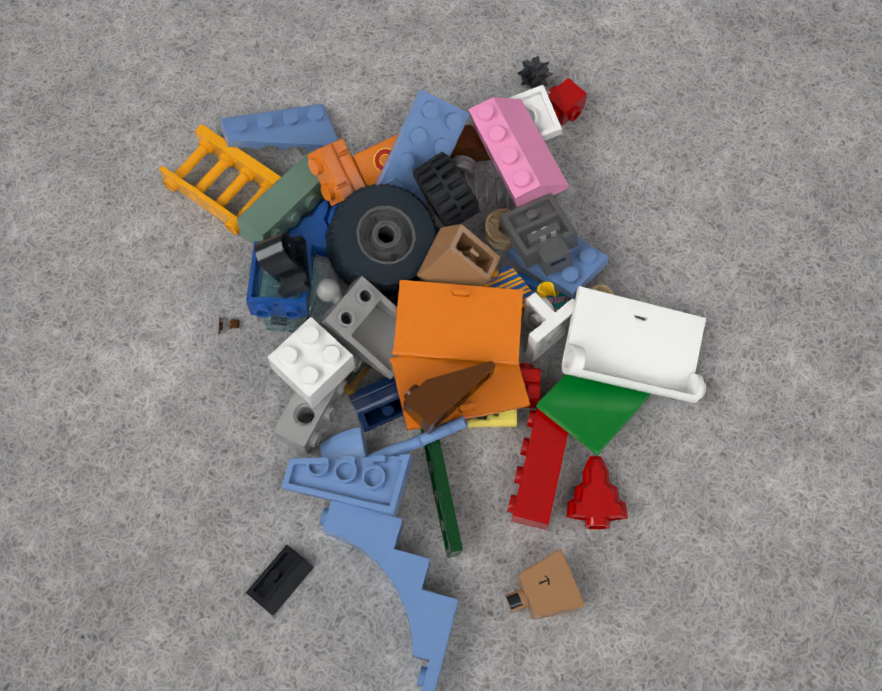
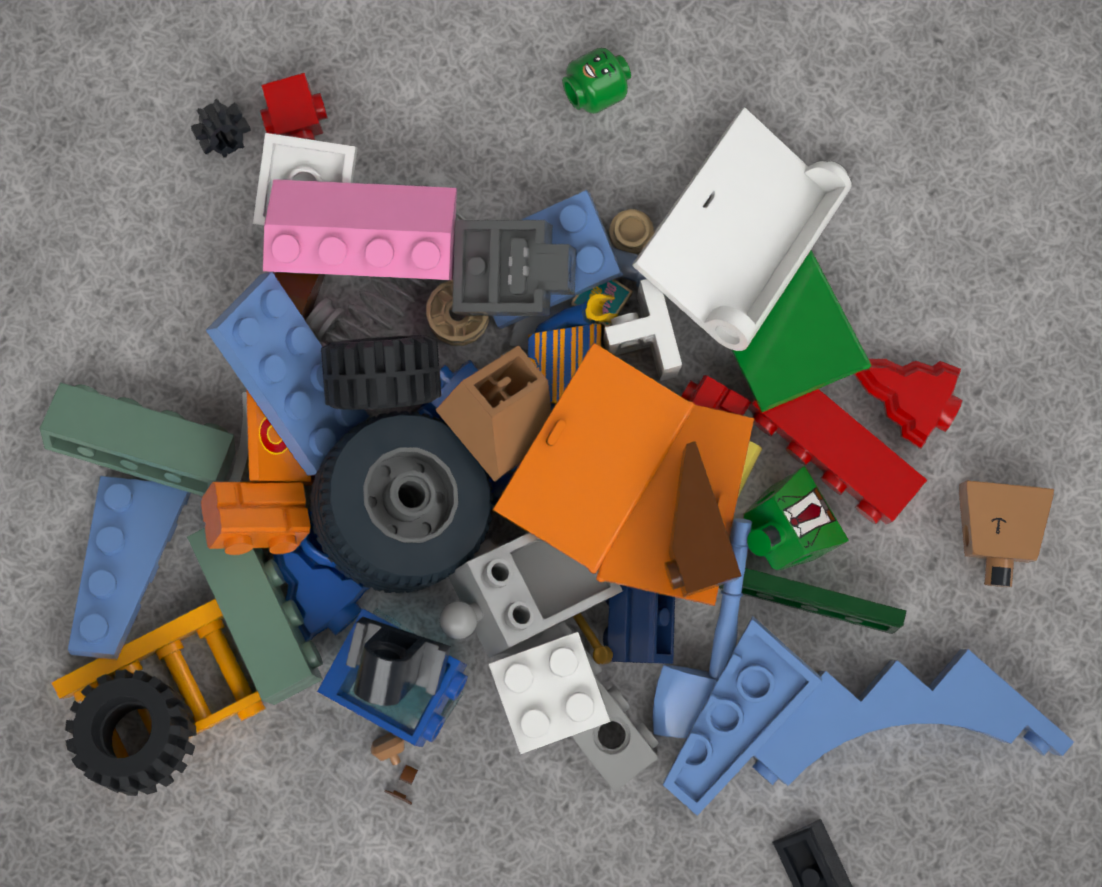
camera: 65 degrees left, 15 degrees up
(184, 149) = (101, 713): none -> black tyre
(242, 305) = (388, 747): none -> medium nougat rock
(349, 103) = (137, 439): none -> sand green brick
(480, 458) = (793, 523): none -> green torso
(673, 238) = (596, 80): none -> green head

